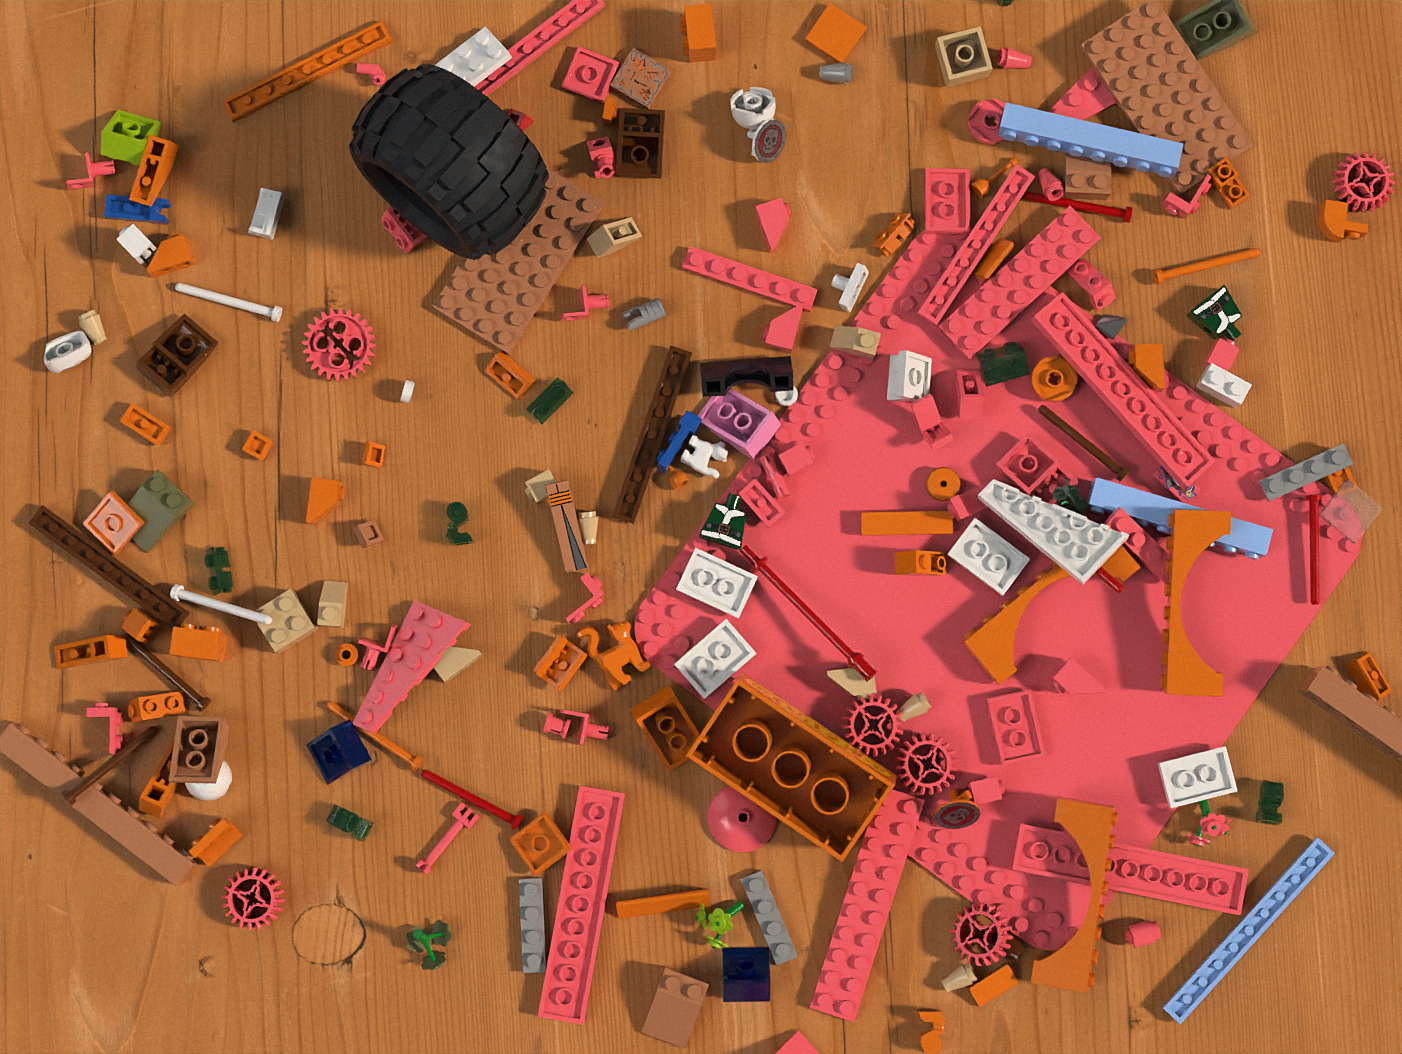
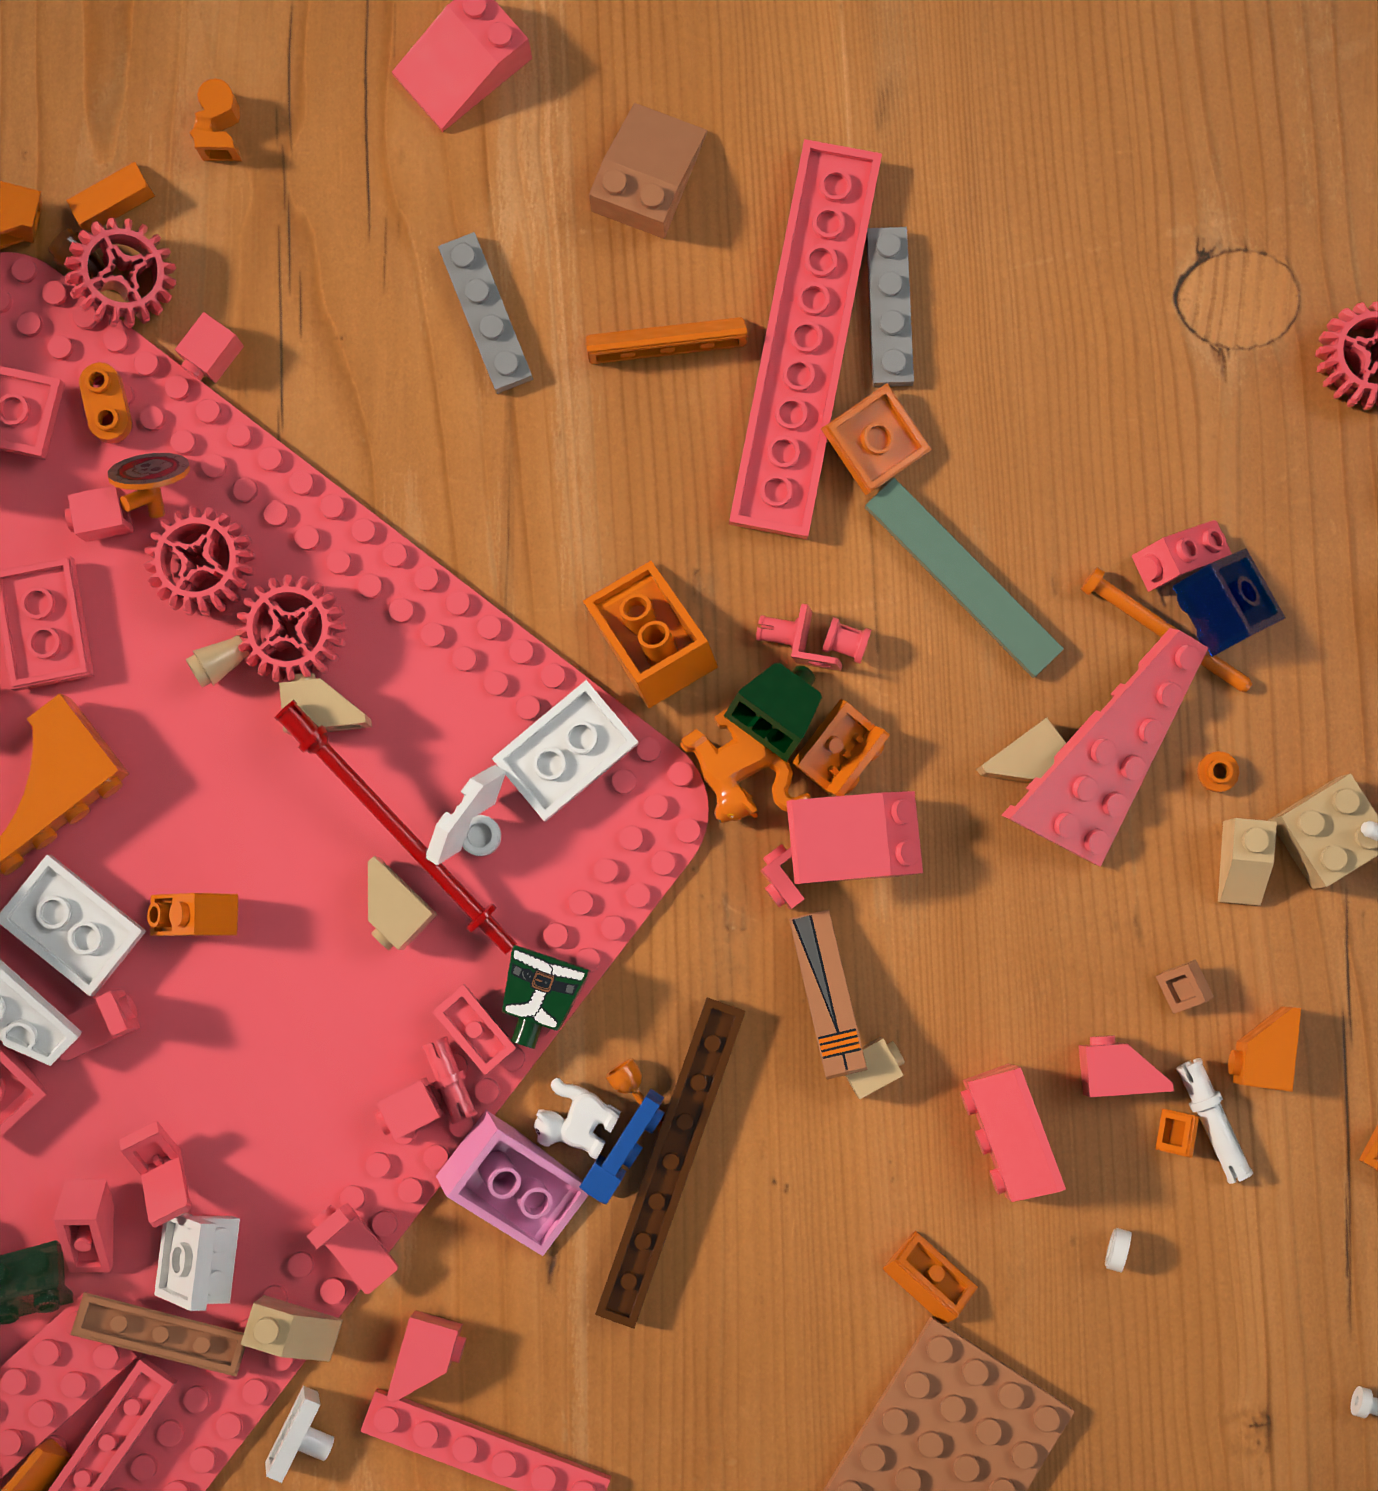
camera: 170 degrees left, 0 degrees up
(324, 358) = (1219, 1365): coral gear -> none
(350, 822) = (1214, 484): clear green leg -> none
(356, 469) = (1215, 1122): none -> white pin
(364, 779) = (1180, 554): none -> coral bracket
(374, 648) = (1168, 783): coral bracket -> none
(406, 487) = (1117, 1070): none -> coral slope
(420, 939) = (1081, 281): olive plant -> none
(425, 865) = (1012, 484): coral hinge -> none
(459, 516) = (1022, 1017): clear green leg -> none
(466, 452) = (1012, 1134): none -> coral slope
(475, 800) = (993, 519): red bar -> none
(490, 764) = (963, 578): none -> sand green tile
(549, 400) = (857, 1228): clear green hinge -> none
(552, 611) = (854, 837): none -> coral slope
(586, 302) = (788, 1412): coral bracket -> none
(588, 526) = (789, 994): tan cone -> none
(595, 684) = (776, 707): none -> dark green torso
(645, 314) = (673, 1392): light grey hinge -> none
(716, 583) = (559, 886): white plate -> none
(718, 922) = (569, 300): lime plant -> none
(721, 376) = (449, 1273): black arch -> none
(730, 831) = (533, 507): coral dish -> none
(746, 974) = (526, 217): clear blue slope -> none
(762, 611) = (482, 836): none -> white tile
(775, 613) = (451, 829): none -> white tile
(786, 398) = (425, 1231): white tile -> none
(792, 766) = (430, 550): orange brick -> none
(807, 569) = (394, 907): none -> tan slope
(823, 385) = (353, 1246): none -> coral bracket
(866, 906) = (314, 334): coral plate -> none
(906, 523) = (215, 989): orange tile -> none
(926, 338) = (159, 1334): none -> nougat tile
(929, 891) = (208, 349): none -> coral brick
(949, 477) = (130, 1065): orange piece -> none
(960, 978) = (164, 206): tan cone -> none
(987, 857) = (105, 400): none -> orange plate

